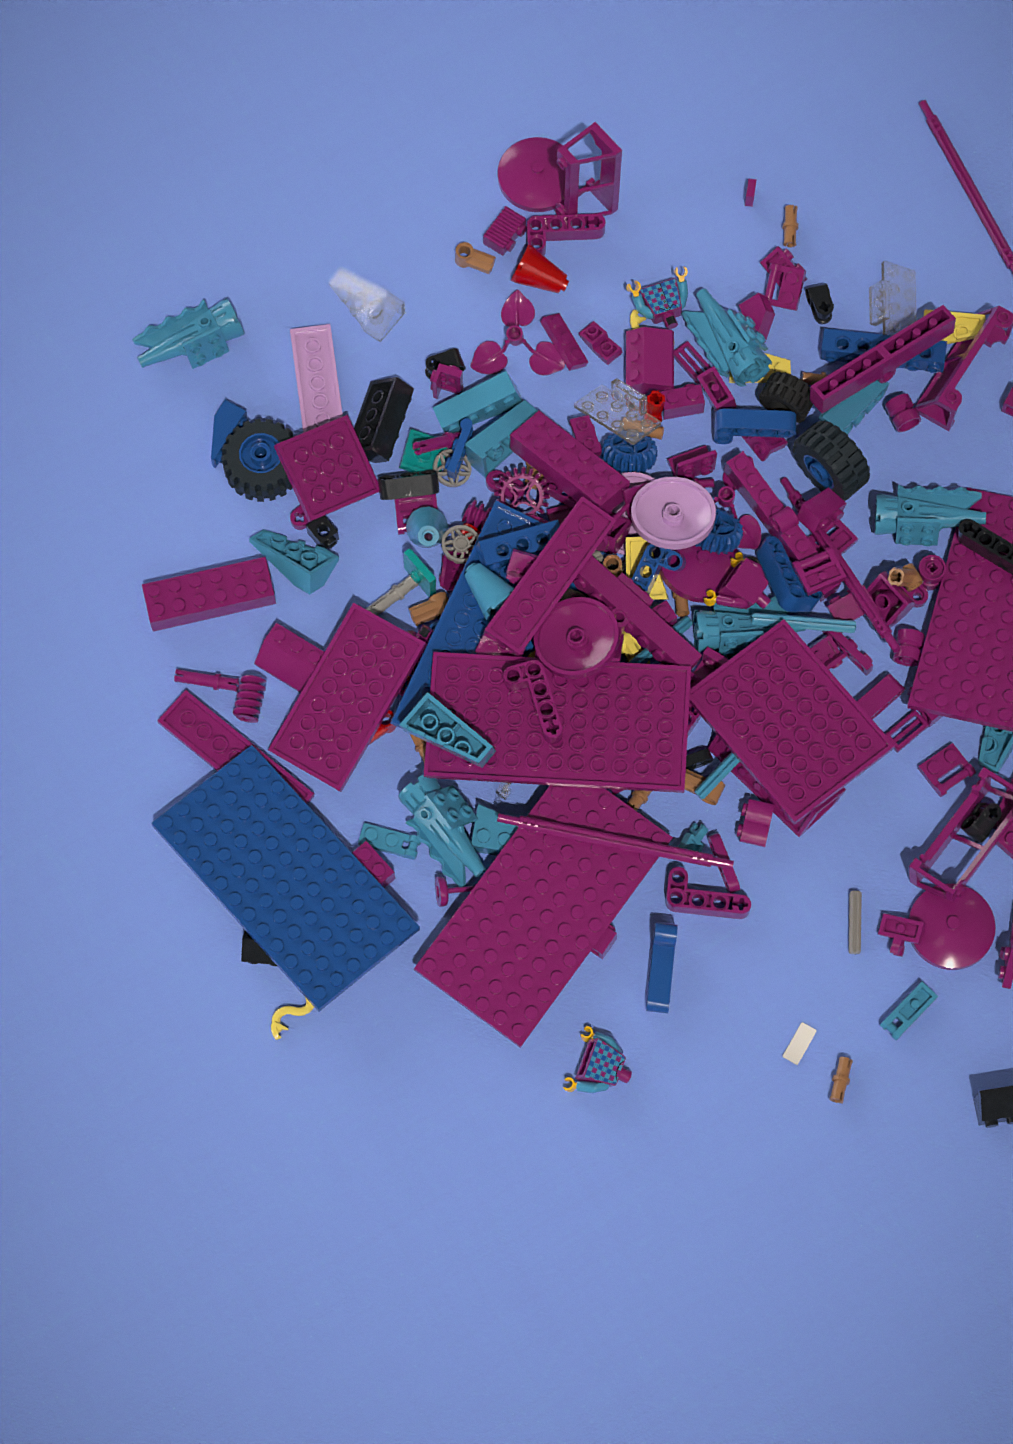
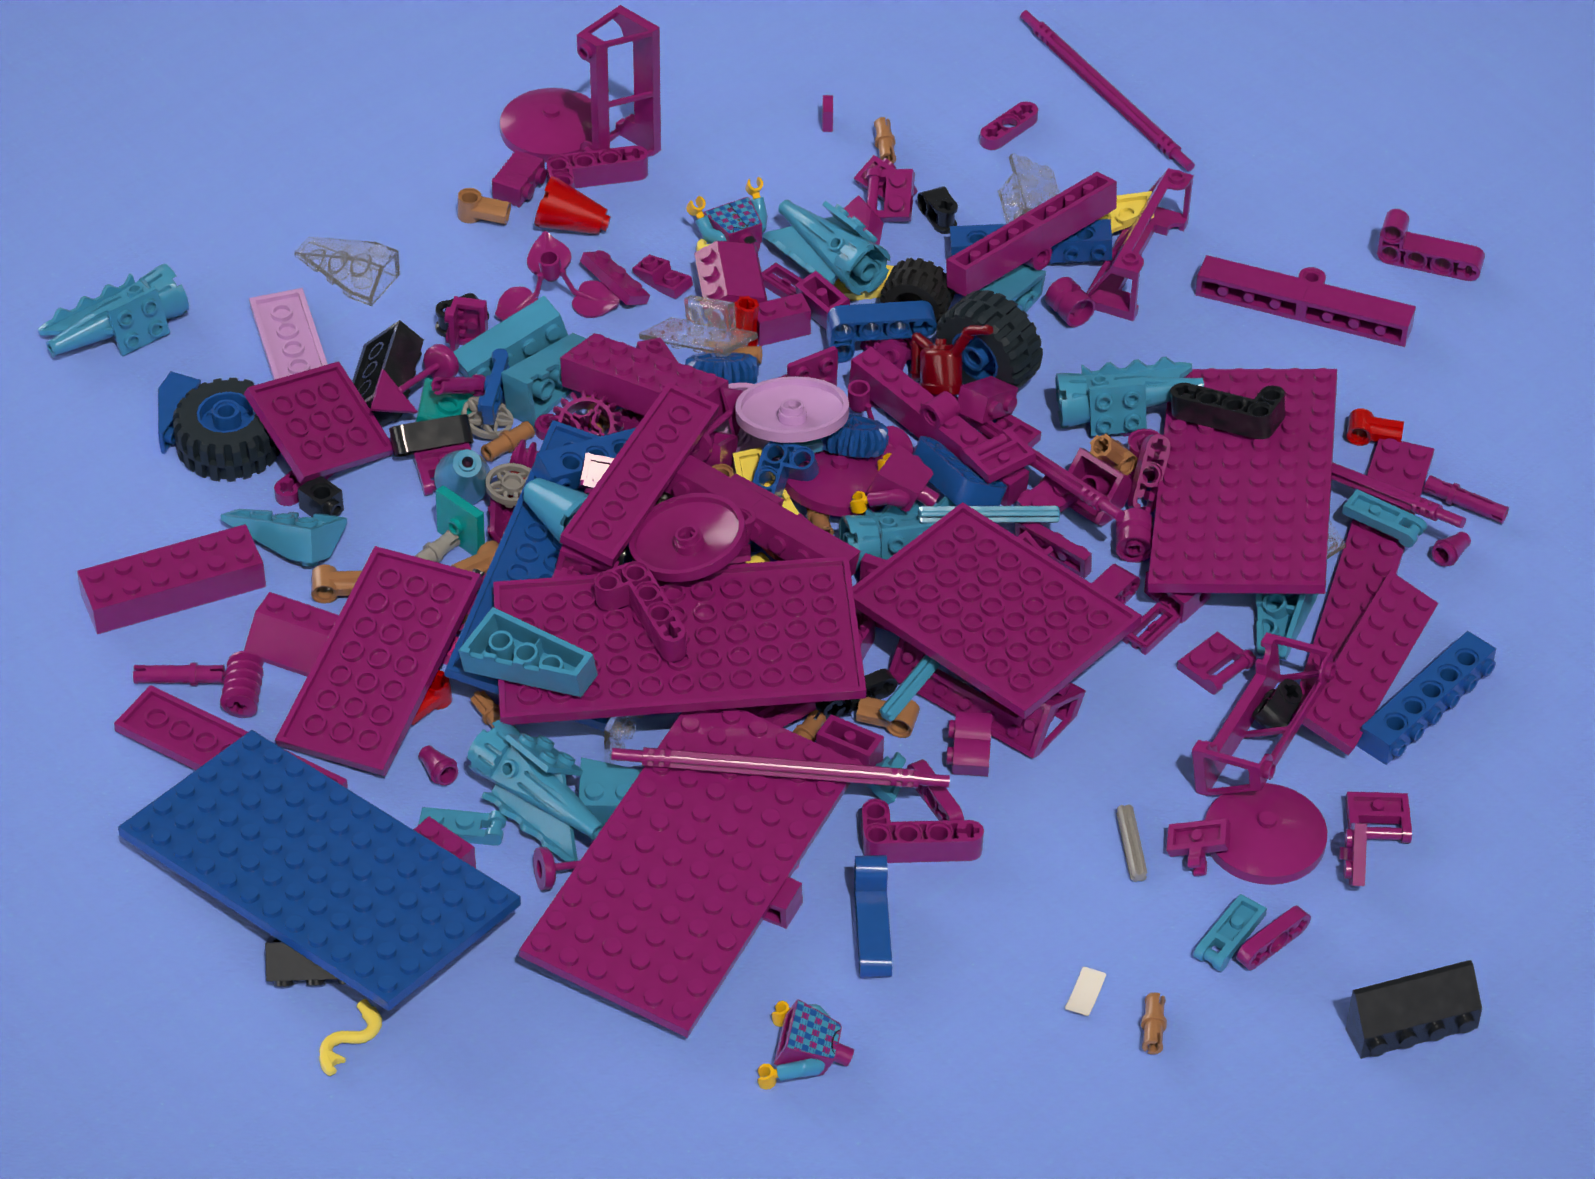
camera: 10 degrees left, 25 degrees down
(323, 612) = (330, 583): none -> medium nougat piece
(379, 788) = (439, 766): none -> magenta cone
(382, 448) = (388, 397): none -> magenta piece
(464, 493) = (507, 441): none -> medium nougat pin
(669, 816) = (851, 741): none -> magenta brick
(793, 471) = (940, 364): none -> dark red piece
(886, 228) = (996, 135): none -> magenta beam
(928, 586) = (1138, 480): none -> magenta beam
(938, 1020) = (1273, 937): none -> magenta beam

